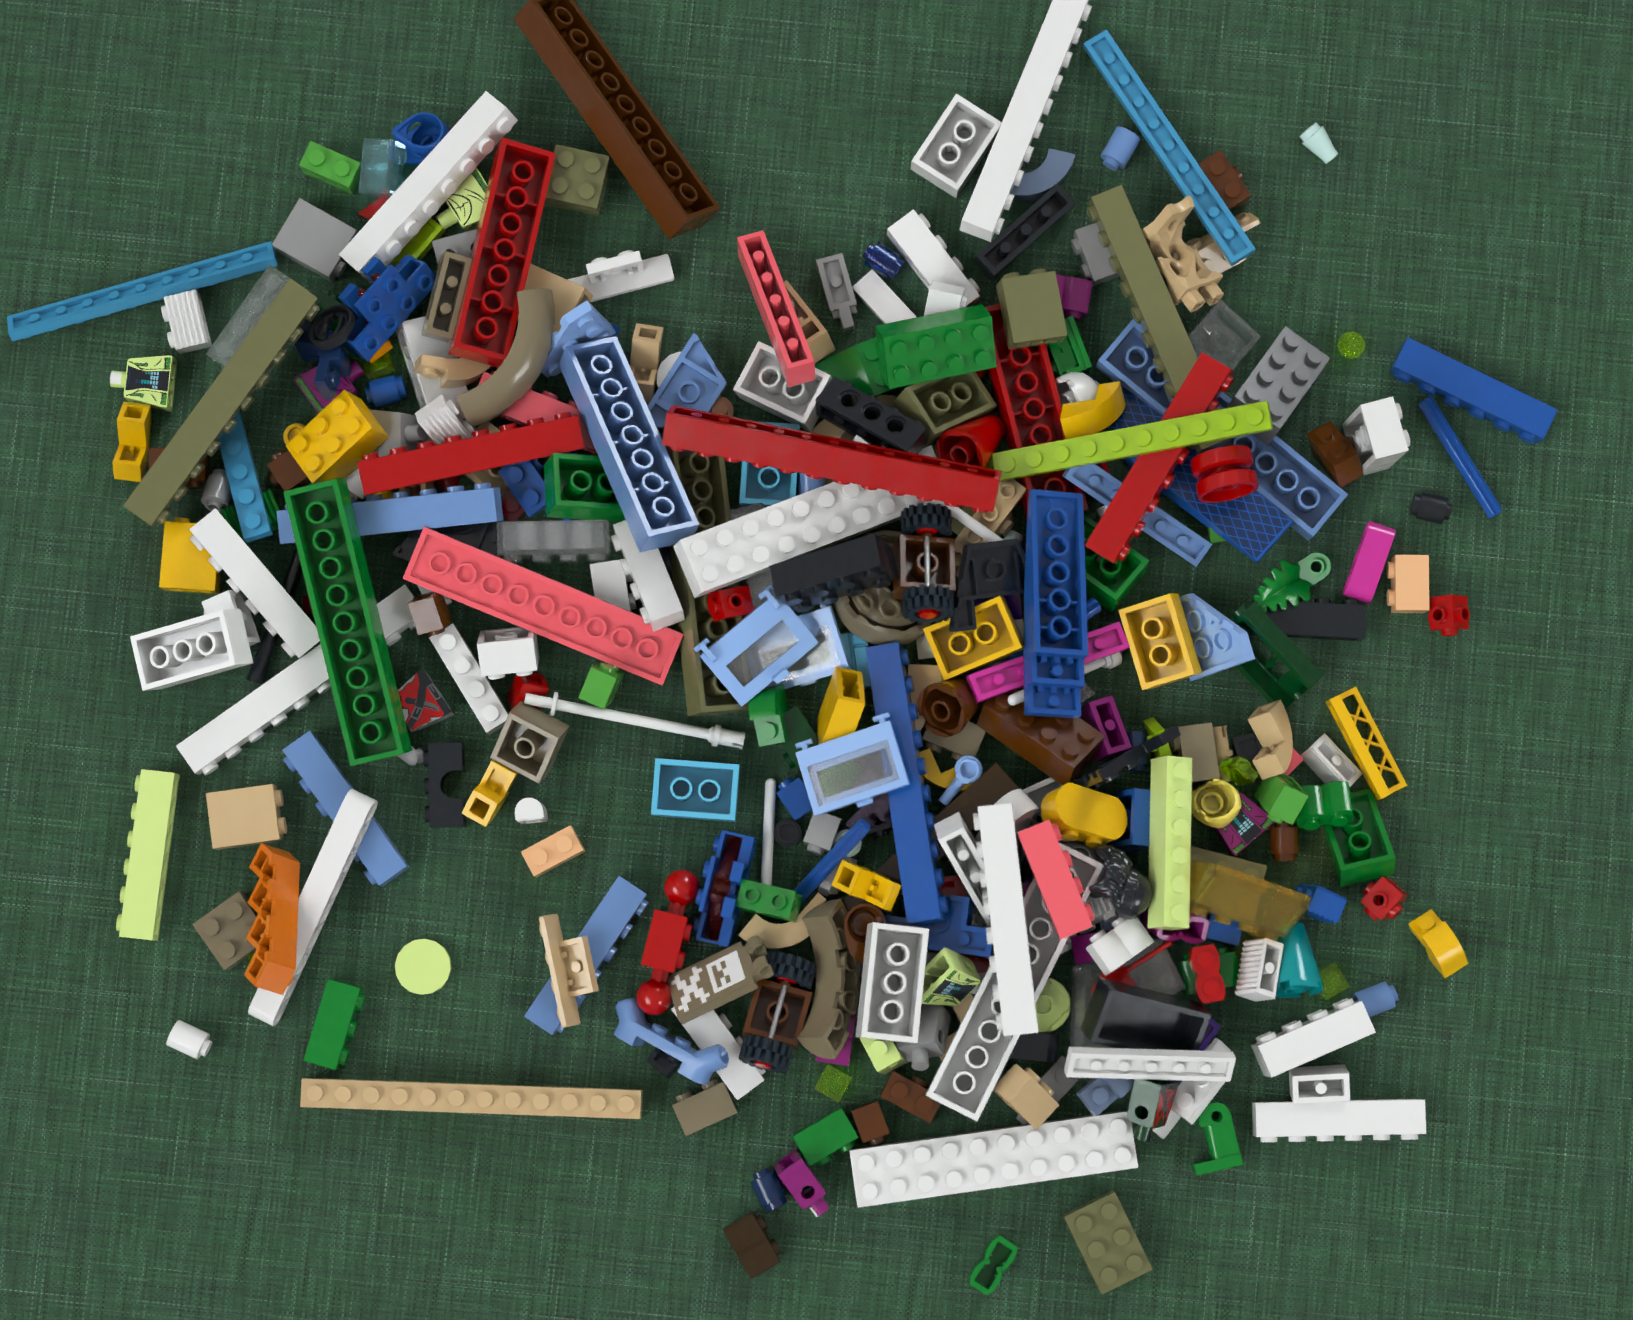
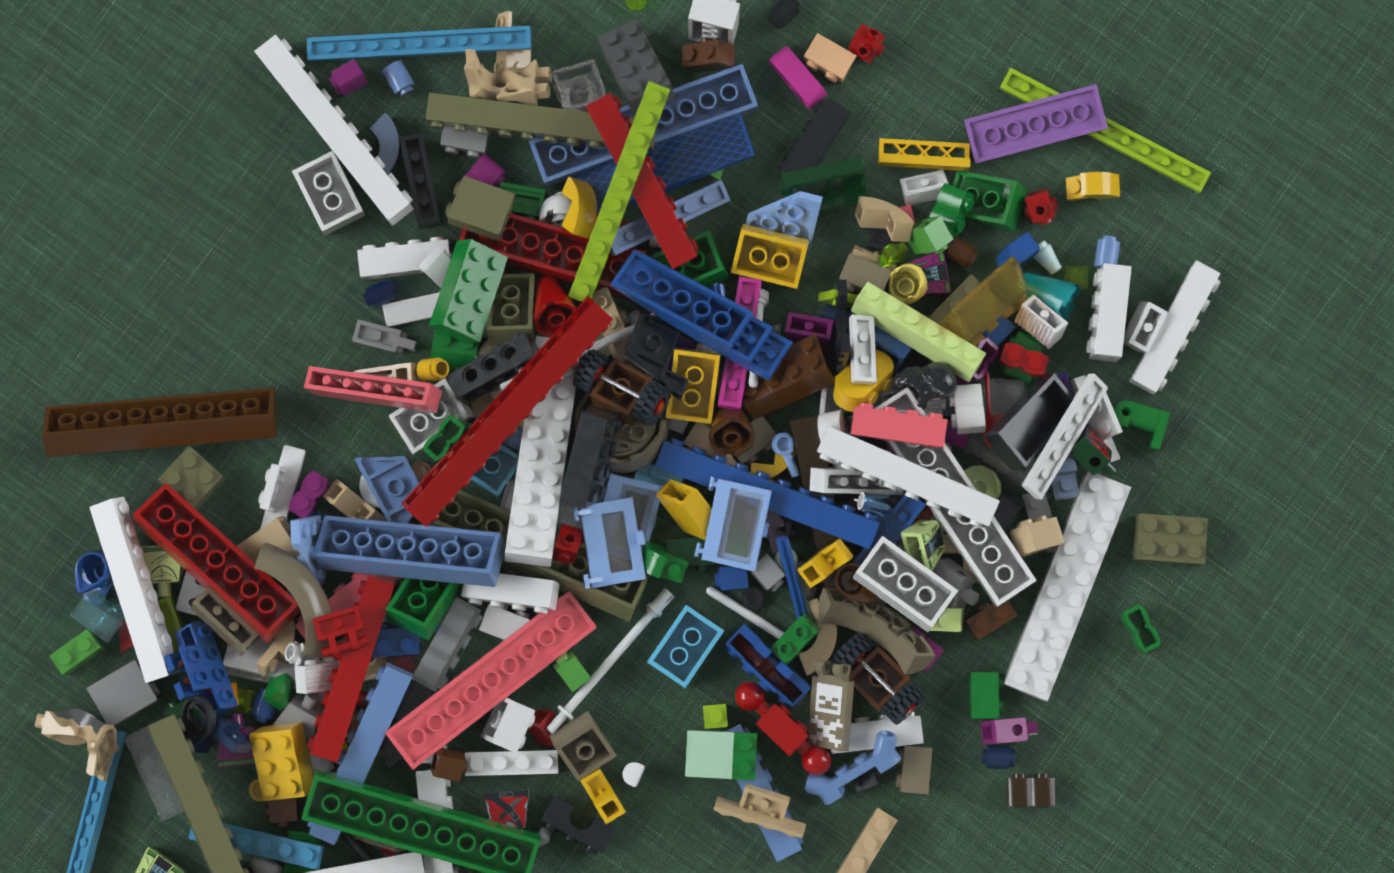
camera: 60 degrees left, 0 degrees up
(186, 321) = (128, 823): white brick -> none
(253, 214) = (80, 727): none -> tan hips
(407, 395) = (279, 691): none -> green brick
(454, 386) = (294, 653): none -> white plate
(507, 412) = (339, 624): none -> red plate
(553, 851) = (670, 774): light nougat brick -> none
(601, 892) = (721, 755): none -> slope
(633, 309) = (306, 500): none -> magenta brick
(640, 863) = (715, 716): none -> lime brick
(772, 411) = (449, 431): none -> green brick
(833, 358) = (432, 369): none -> yellow brick
(833, 1083) = (949, 668): clear neon green plate -> none
(870, 1123) = (992, 658): reddish brown brick -> none
(954, 893) = (867, 503): none -> flat silver piece
(1088, 95) = (347, 78): none -> magenta brick
(1115, 794) = (862, 349): none -> white plate
(1224, 474) = (679, 141): red wheel -> none
(1226, 180) = (466, 17): reddish brown brick -> none
(1292, 582) = (781, 139): green plant -> none
(1333, 937) = (1047, 257): none -> light aqua cone
(1470, 843) = (1036, 123): none -> medium lavender plate
(1507, 922) = (1118, 137): none -> lime plate

